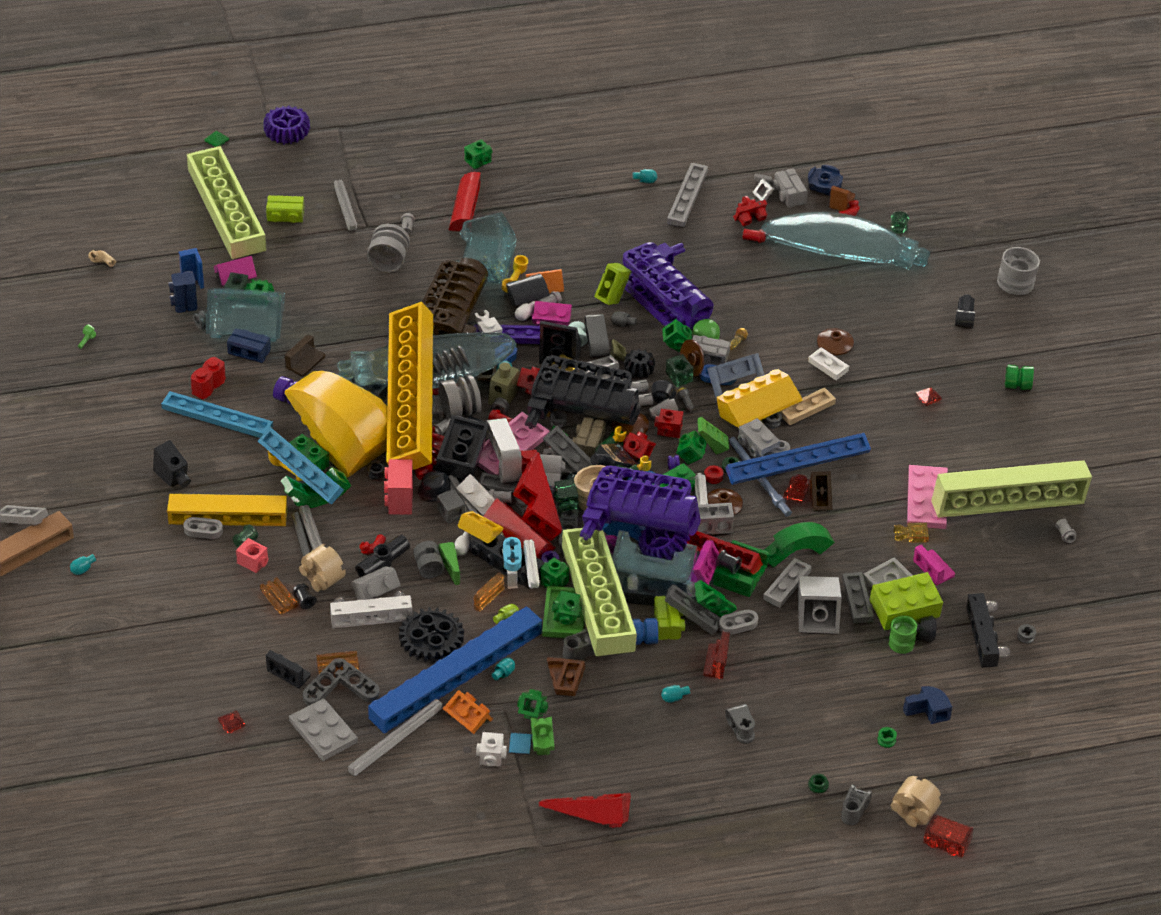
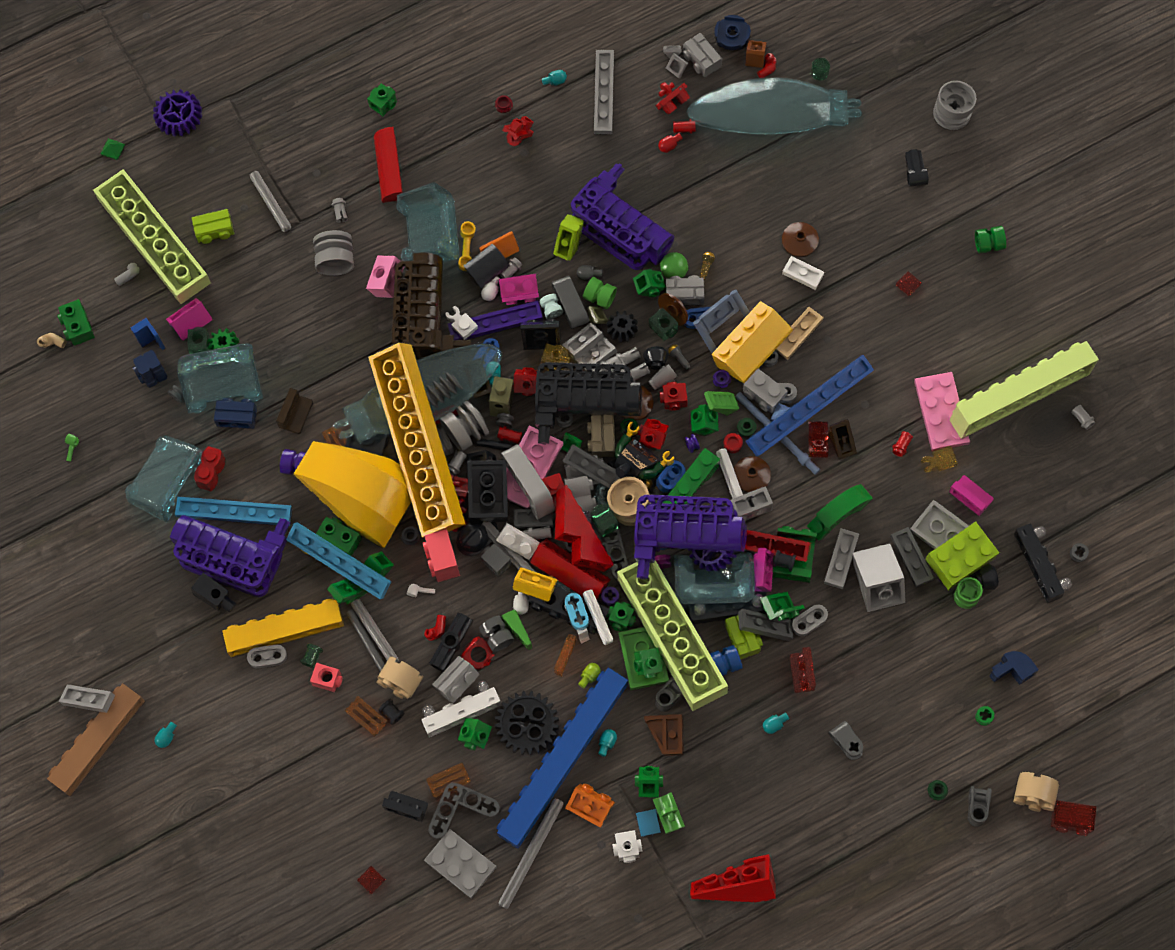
camera: 10 degrees left, 25 degrees up
(129, 248) = (76, 322): none -> green brick
(157, 373) = (163, 476): none -> clear light blue windscreen
(197, 225) = (132, 271): none -> light grey arm
(202, 441) = (229, 553): none -> dark purple piece
(364, 511) = (414, 589): none -> white hand
(377, 628) = (474, 734): none -> green brick
(406, 562) = (477, 642): none -> red piece
(423, 277) = (383, 276): none -> bright pink brick
(590, 183) = (503, 104): none -> dark red plate
(596, 200) = (518, 130): none -> red hips
(627, 334) = (601, 293): none -> bright green wheel
(721, 422) = (721, 374): none -> dark purple plate
(735, 244) = (669, 143): none -> red cylinder
(875, 513) = (900, 447): none -> red pin

